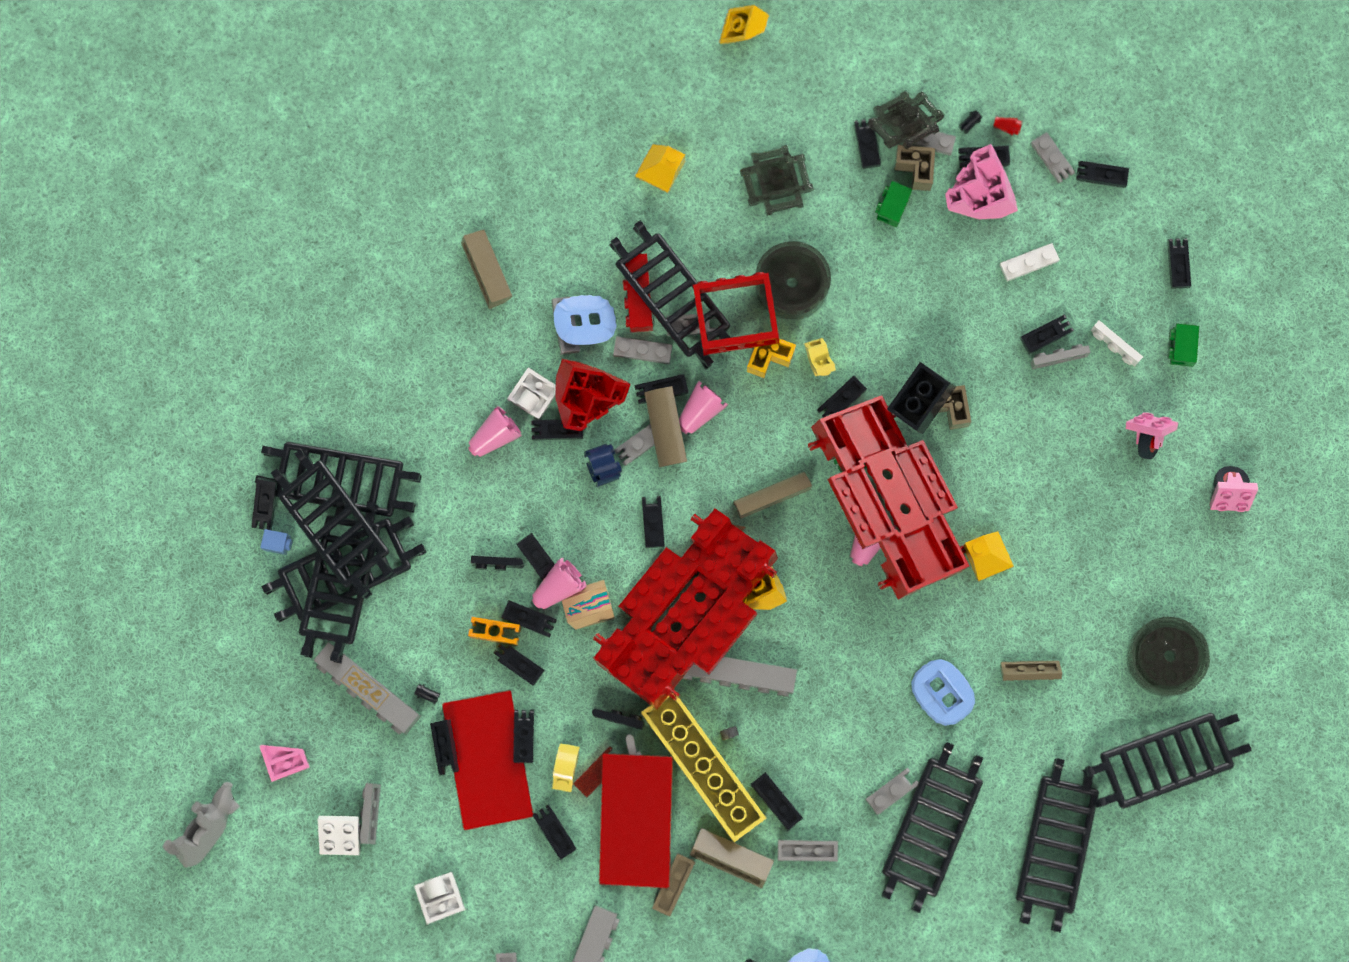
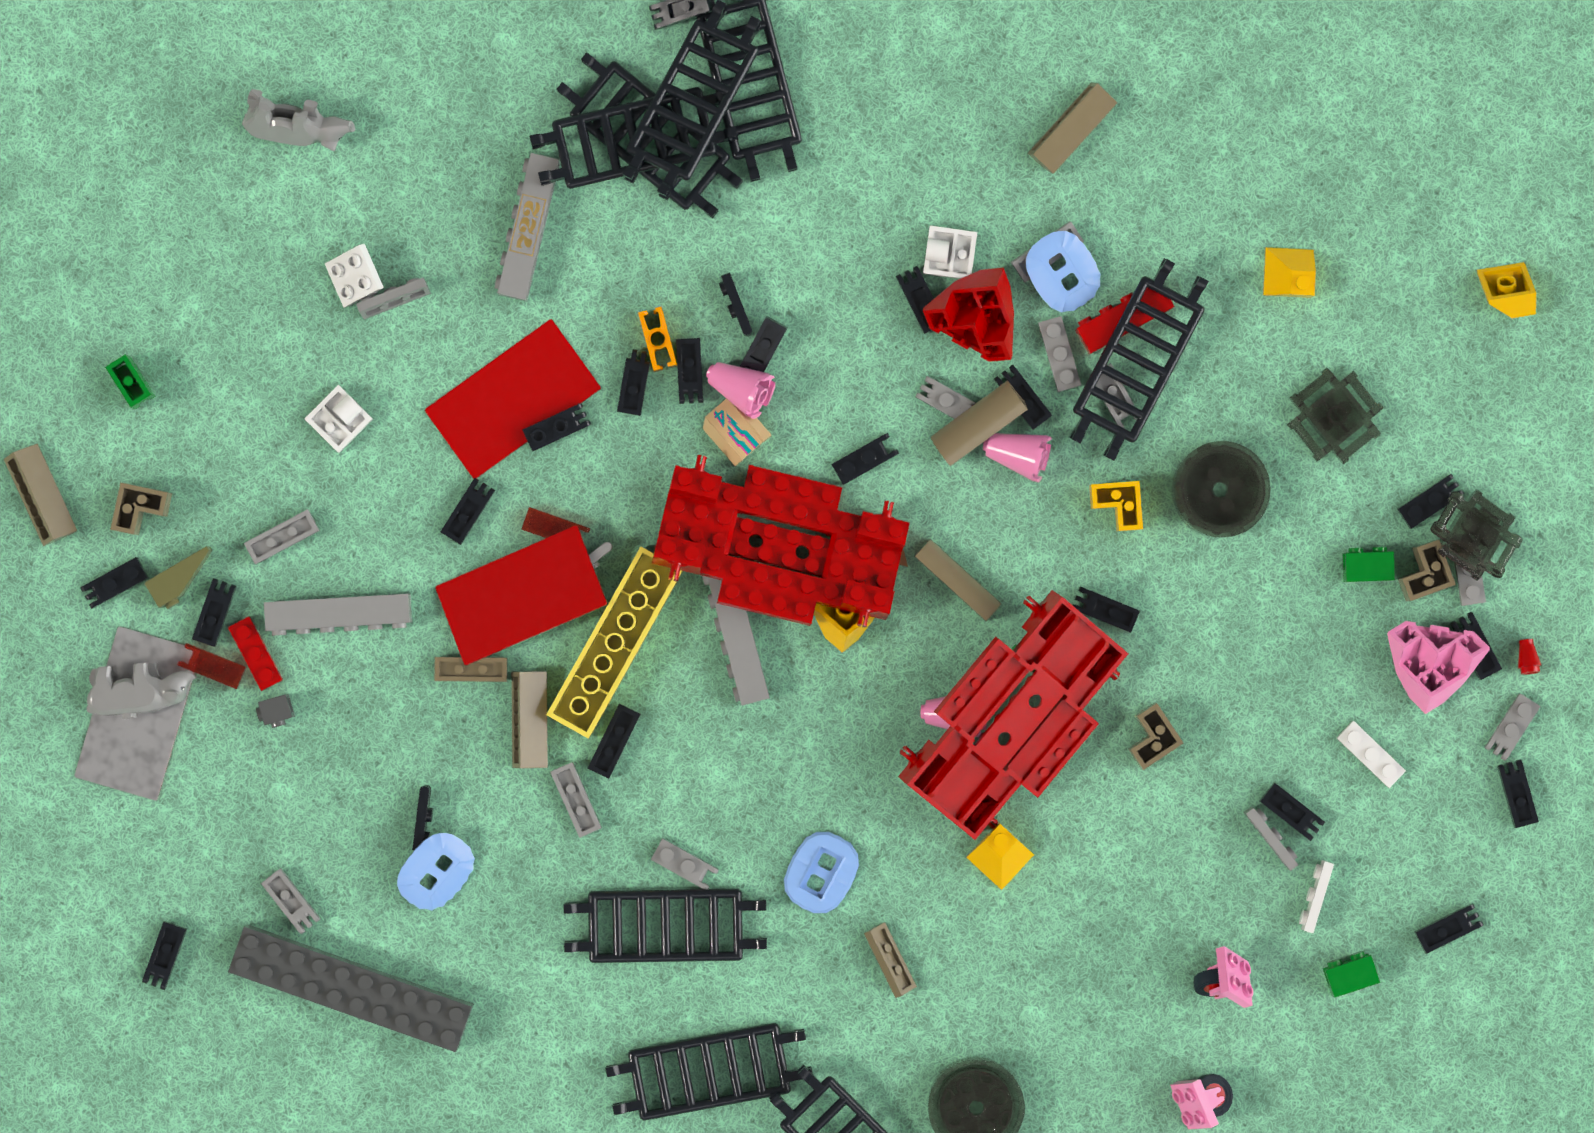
camera: 60 degrees right, 10 degrees up
(276, 542) = (644, 43): medium blue brick -> none
(283, 761) = (406, 173): bright pink wing -> none
(426, 693) = (553, 297): black pin -> none
(444, 746) = (504, 344): black hinge -> none
(494, 433) = (882, 230): bright pink cone -> none
(565, 767) = (543, 490): light yellow brick -> none
(602, 465) = (901, 372): dark blue brick -> none
(616, 717) = (625, 520): black hinge -> none
(729, 733) = (665, 654): dark grey axle -> none
(739, 342) = (1113, 462): red window -> none
(819, 357) = (1142, 562): light yellow brick -> none
(921, 398) = (1142, 700): black brick -> none
(973, 118) = (1512, 611): black pin -> none

